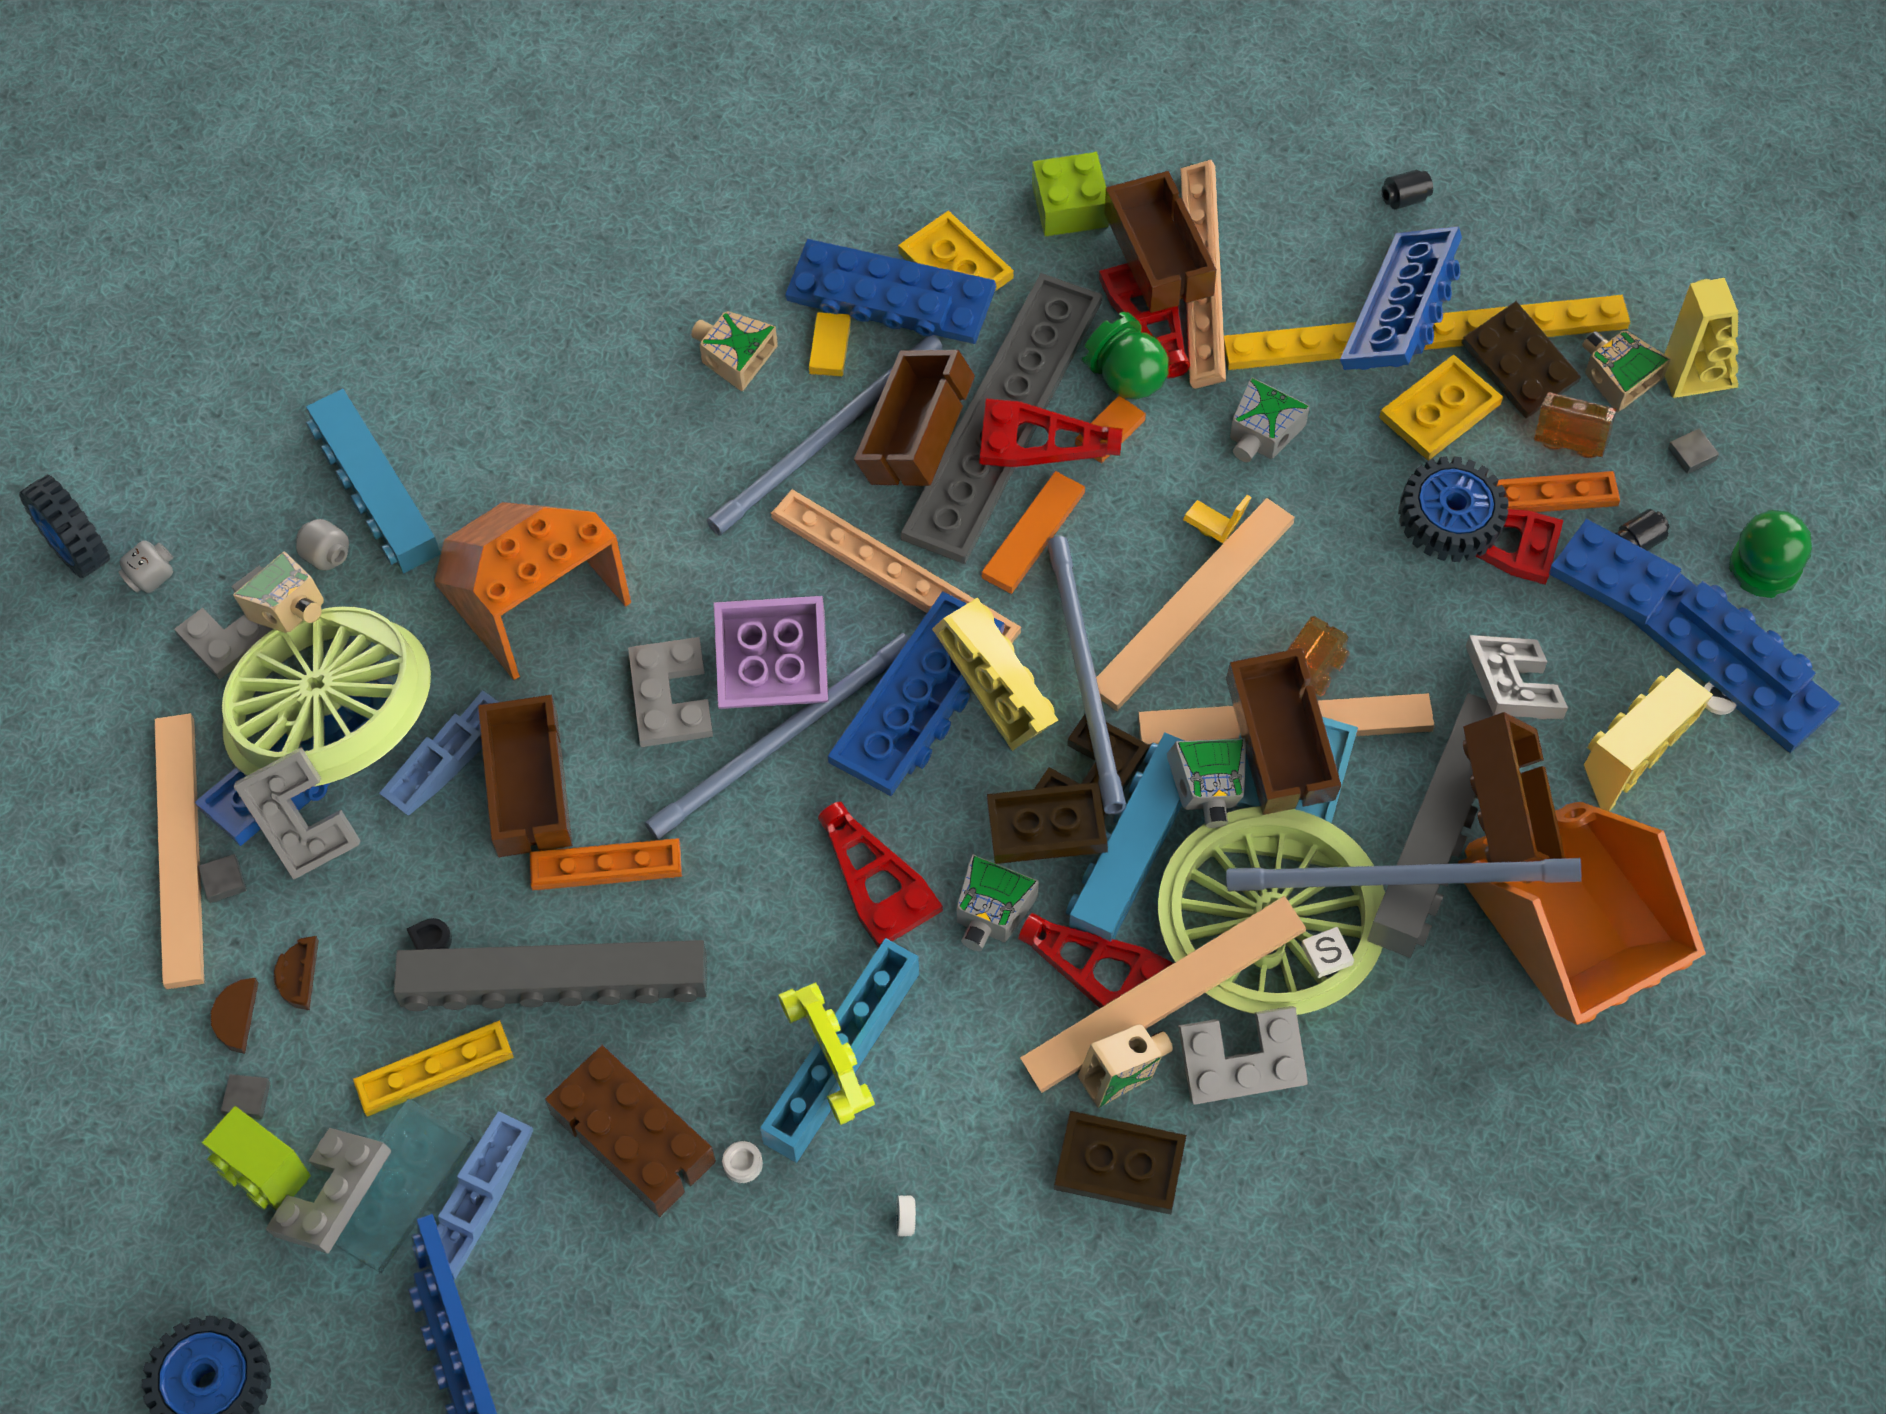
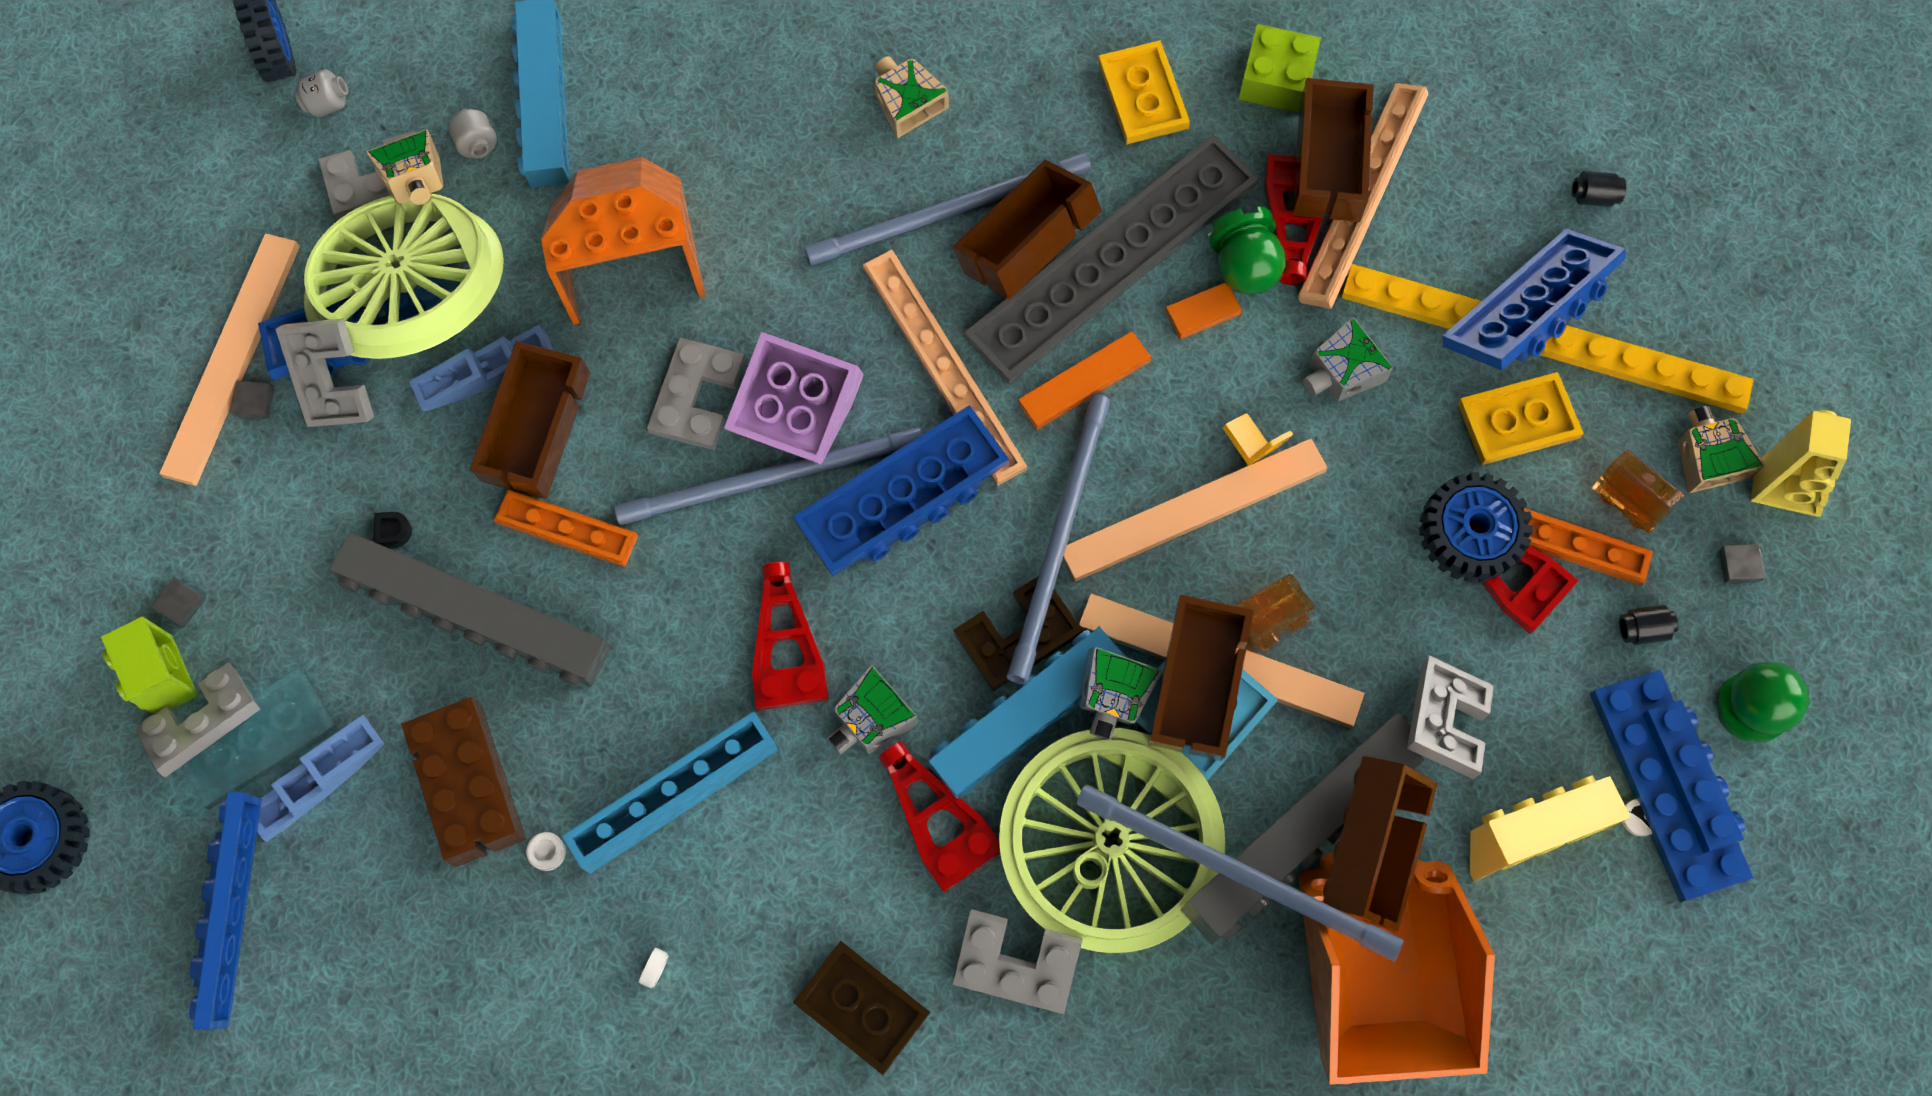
camera: 25 degrees right, 10 degrees up
(233, 1014) = (203, 525): reddish brown tile -> none
(296, 971) = (270, 511): reddish brown tile -> none
(433, 1068) = (337, 647): yellow tile -> none
(809, 1003) = (654, 807): neon yellow plate -> none
(830, 344) = (993, 125): yellow tile -> none
(891, 291) = (1070, 98): blue plate -> none
(995, 673) = (975, 506): light yellow wedge -> none
(1000, 430) = (1100, 271): red plate -> none
(1047, 823) = (950, 666): dark brown plate -> none
(1122, 1062) = (893, 921): tan torso -> none
(1166, 990) = (975, 873): light nougat tile -> none
(1327, 952) = (1137, 905): white tile -> none
(1520, 359) = (1620, 403): dark brown plate -> none
(1615, 571) = (1600, 654): blue plate -> none

